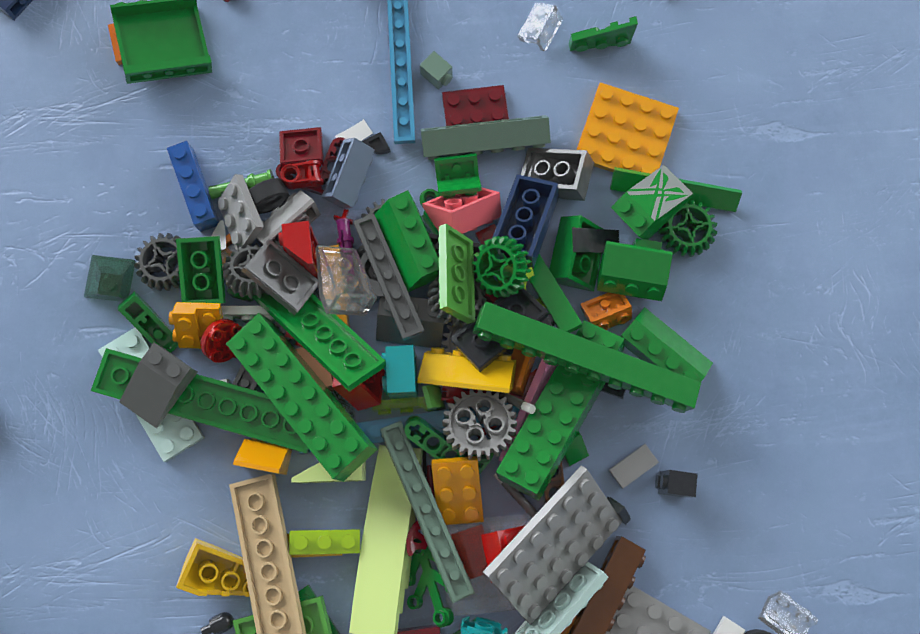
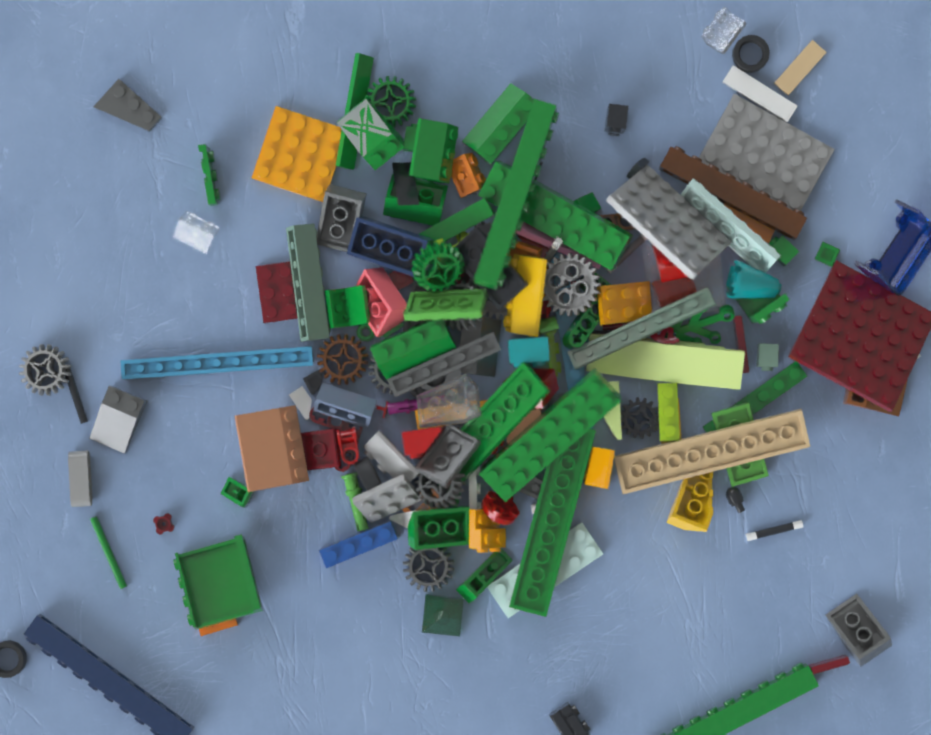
camera: 85 degrees left, 10 degrees up
(157, 384) = (541, 558): dark grey slope -> none
(257, 65) = (237, 492): none -> green slope
(302, 92) = (271, 448): none -> nougat slope
(330, 510) = (641, 409): none -> black gear
(402, 155) = (326, 356): none -> reddish brown gear
(436, 70) = (243, 327): sand green brick -> none
(633, 466) = (600, 154): light grey tile -> none

